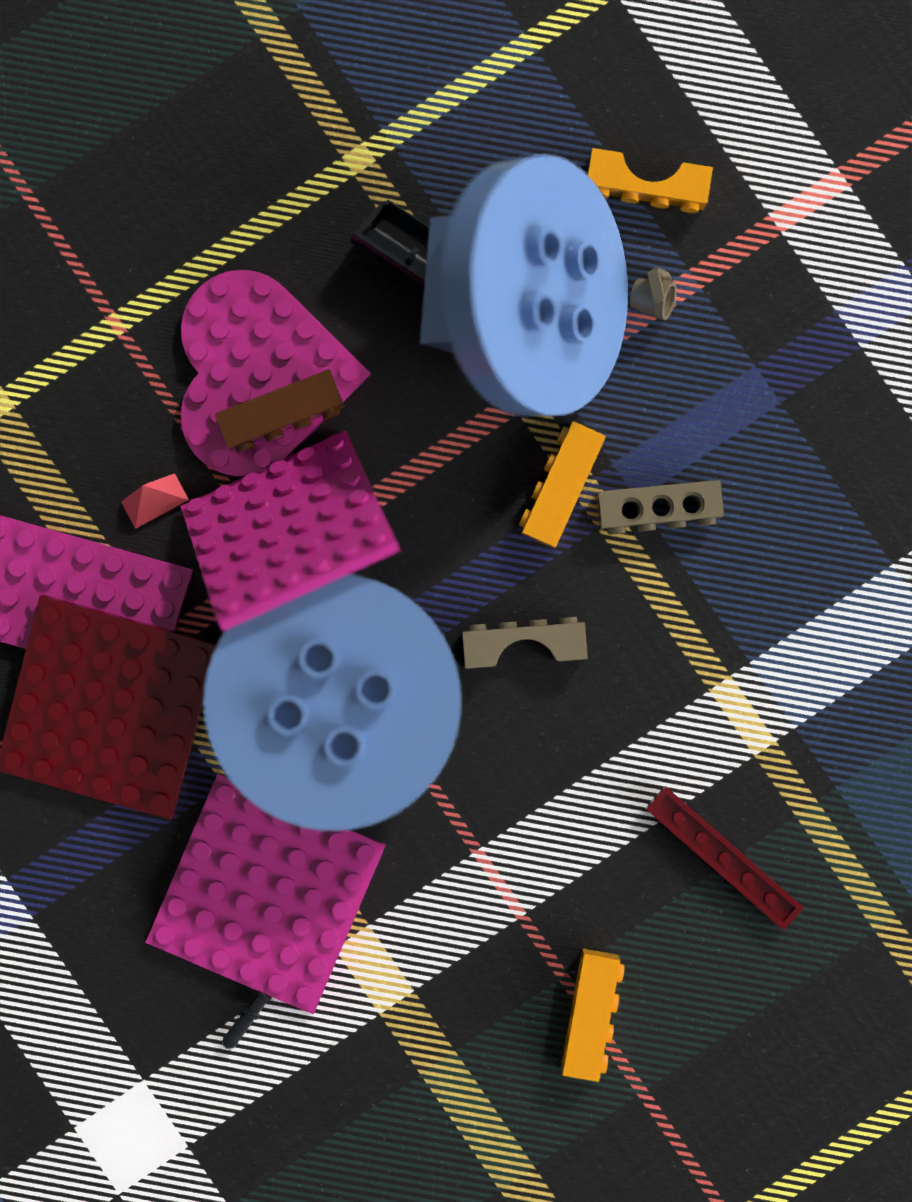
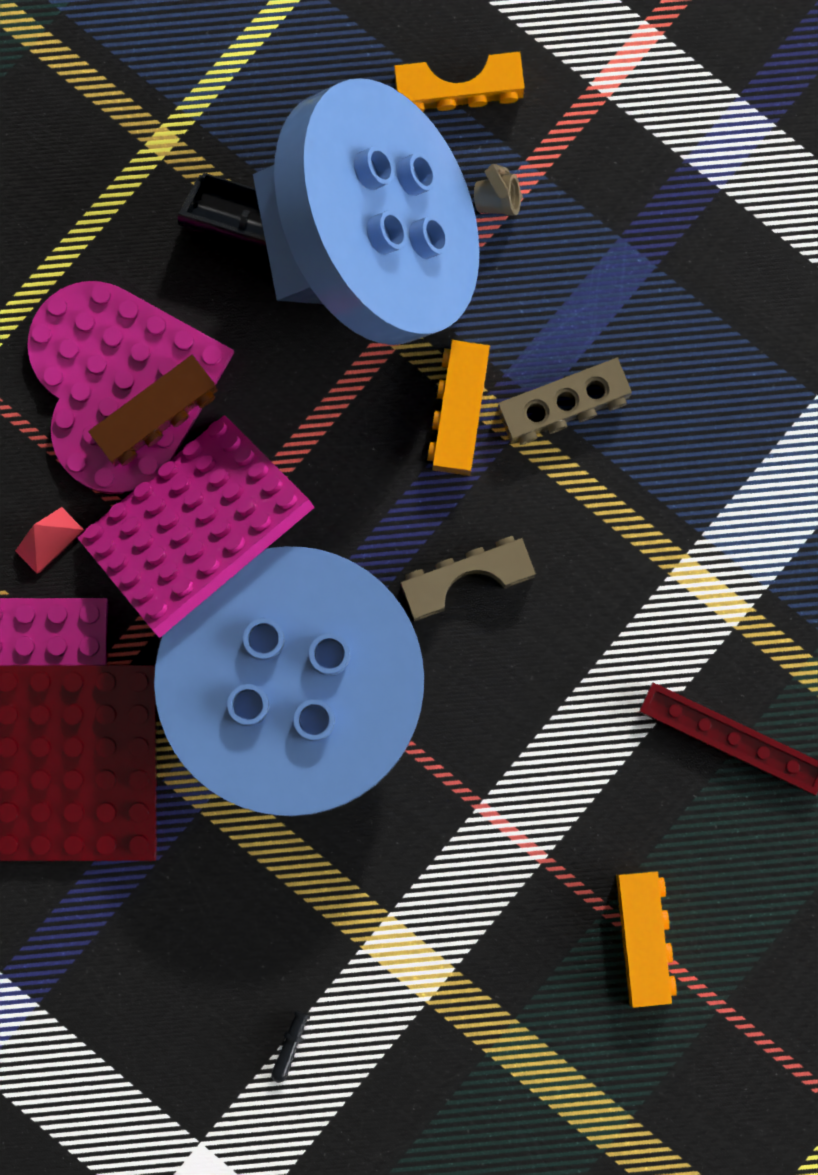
camera: 15 degrees left, 5 degrees down
(264, 897) = (274, 910): dark pink plate -> none

